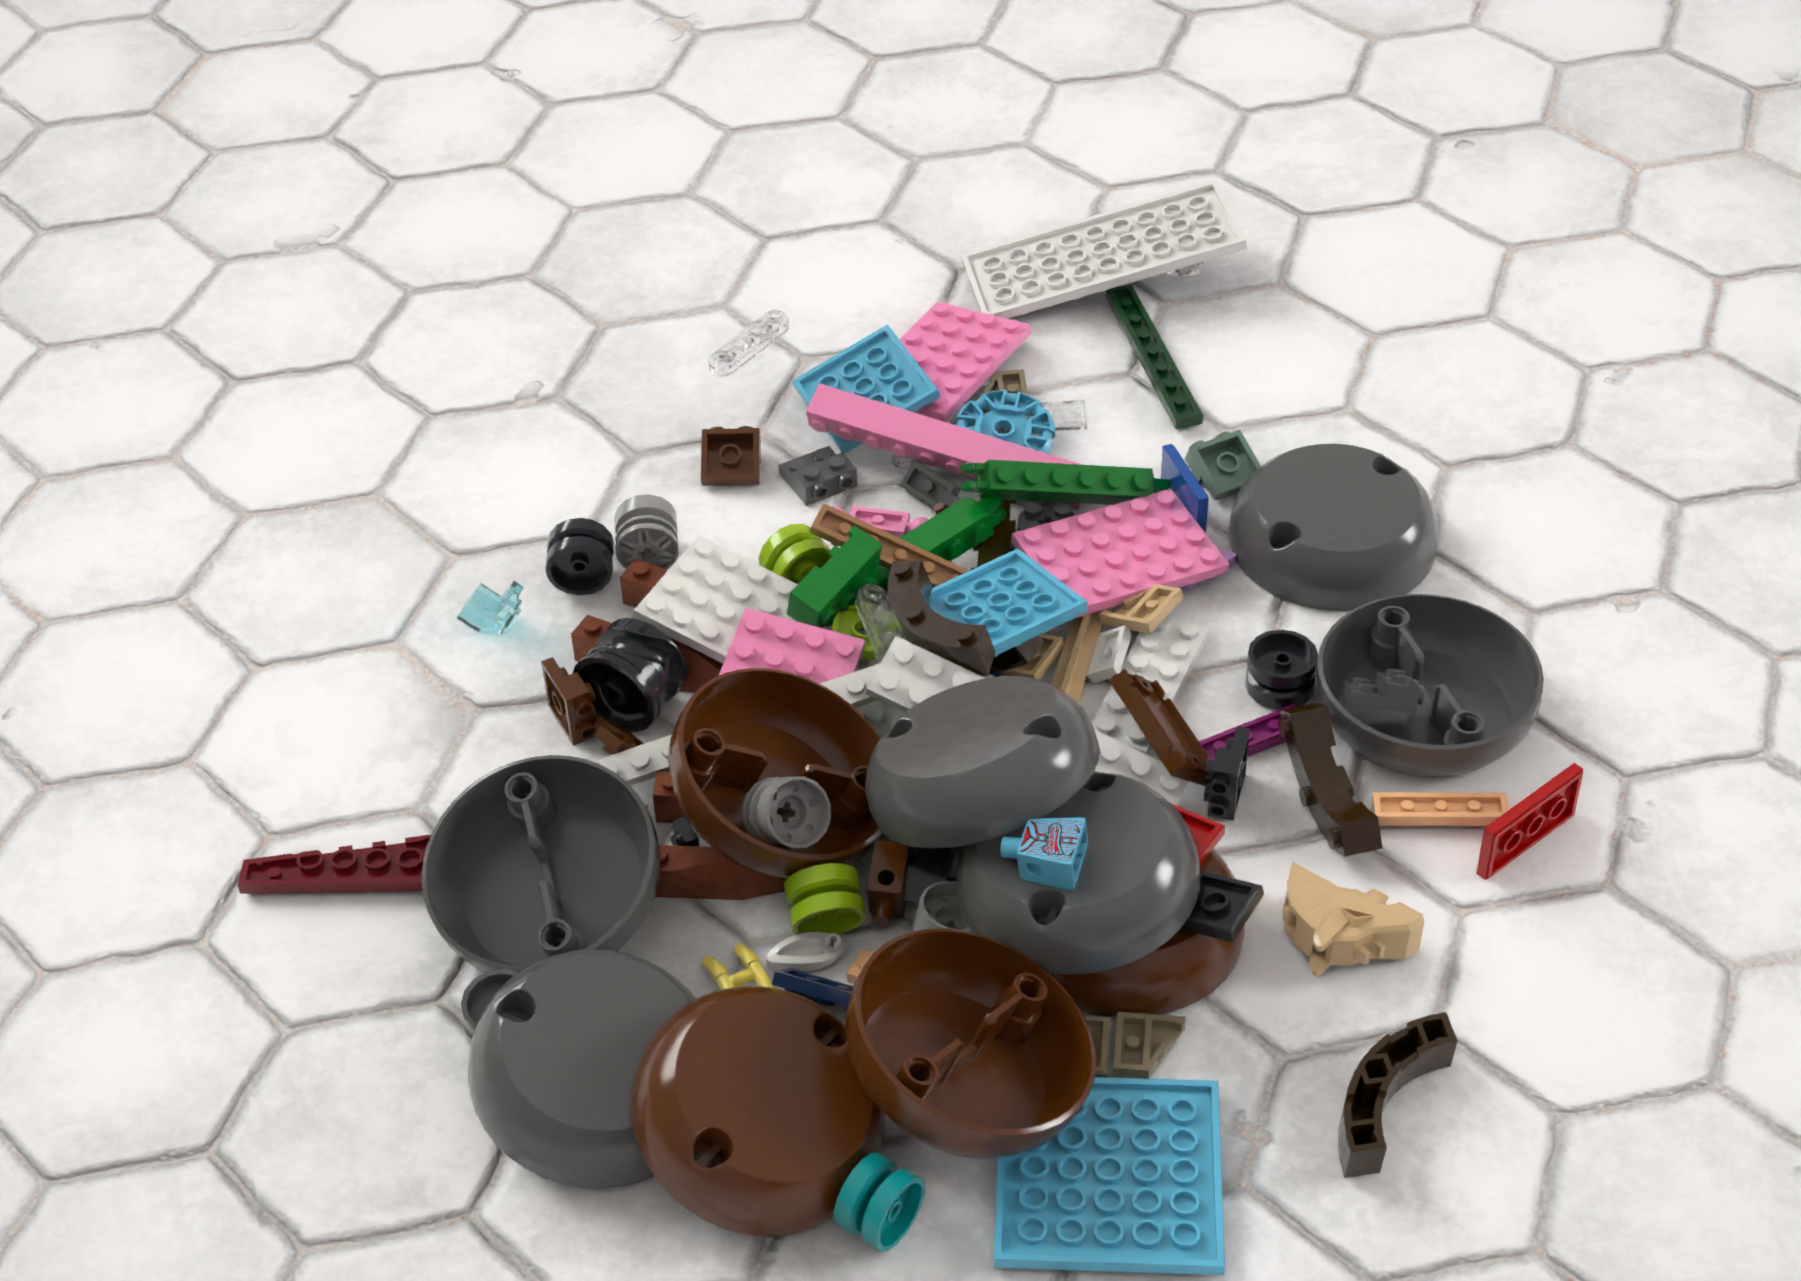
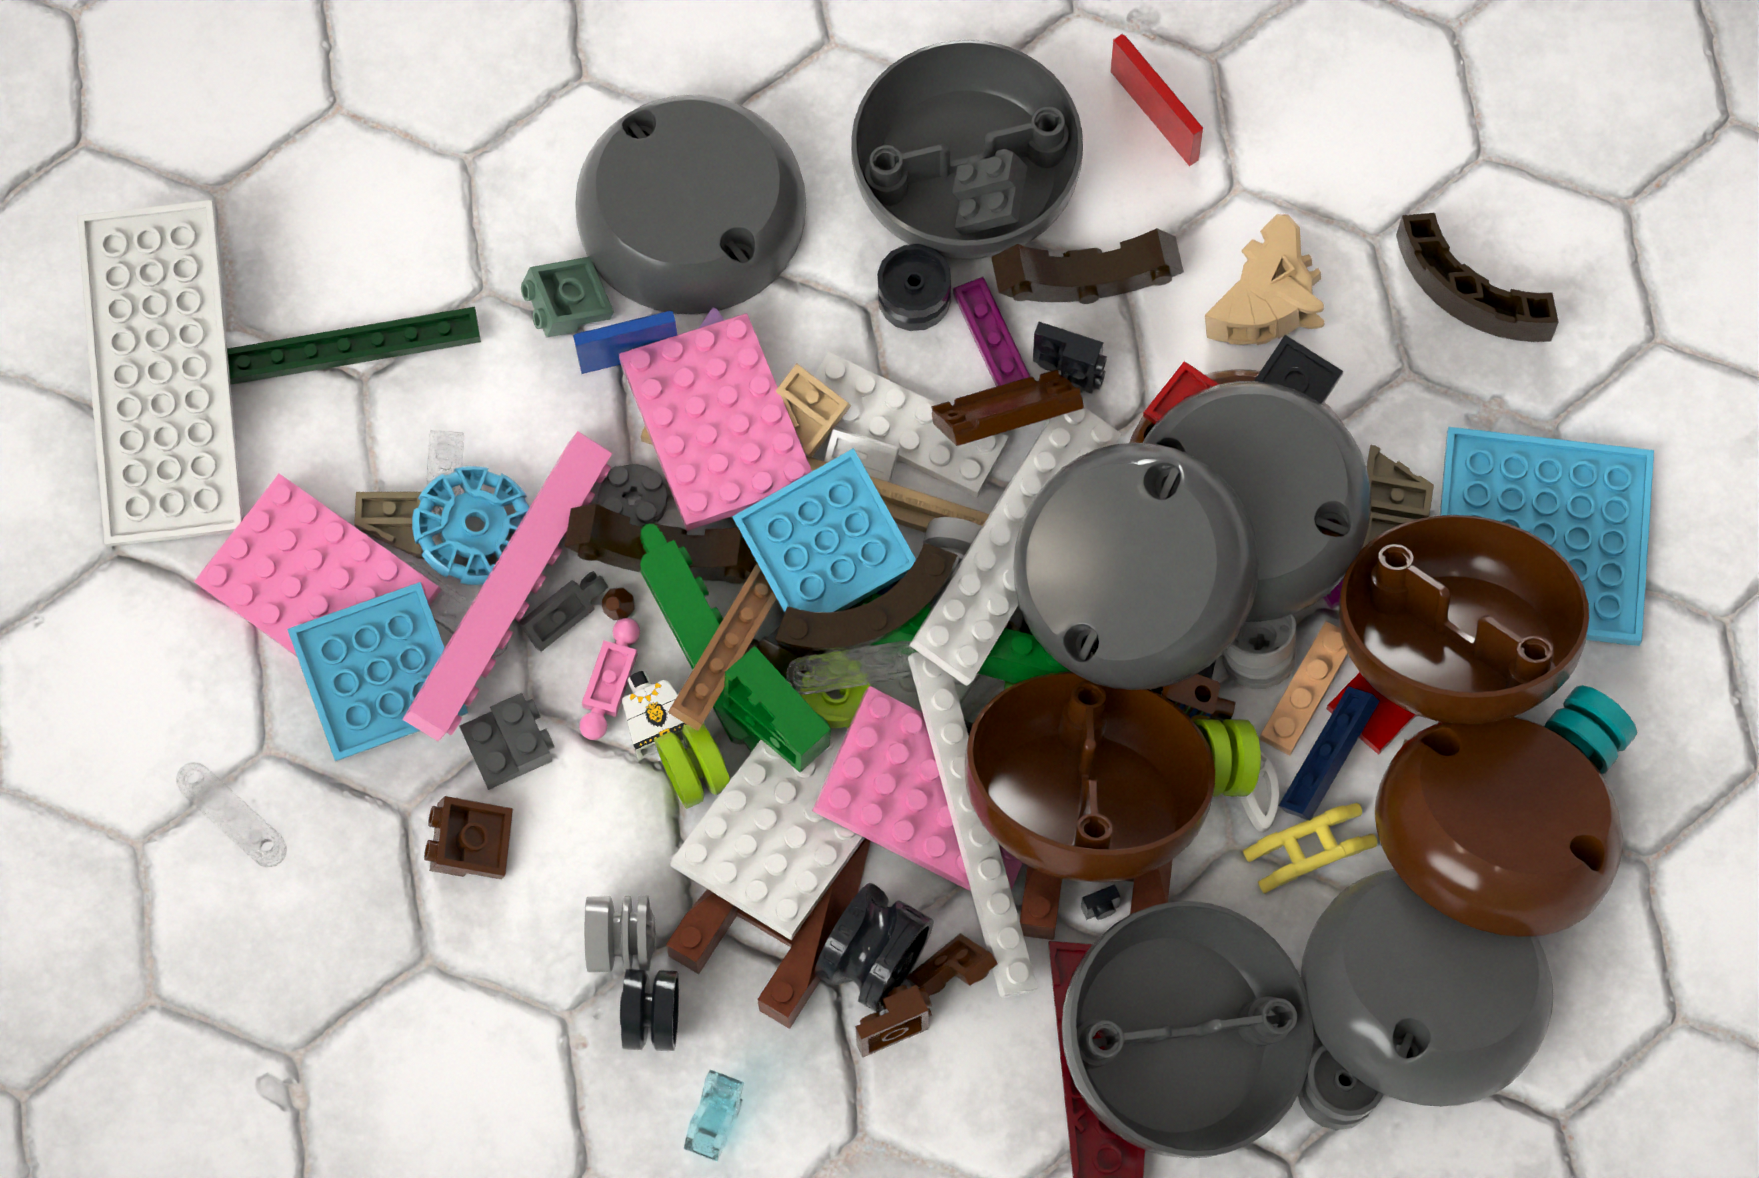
camera: 85 degrees left, 25 degrees up
(802, 806) = (1151, 771): light grey wheel -> none
(1049, 851) = (1282, 505): medium azure torso -> none
(1061, 482) = (619, 459): green hinge -> none
(1438, 808) = (1114, 179): light nougat plate -> none

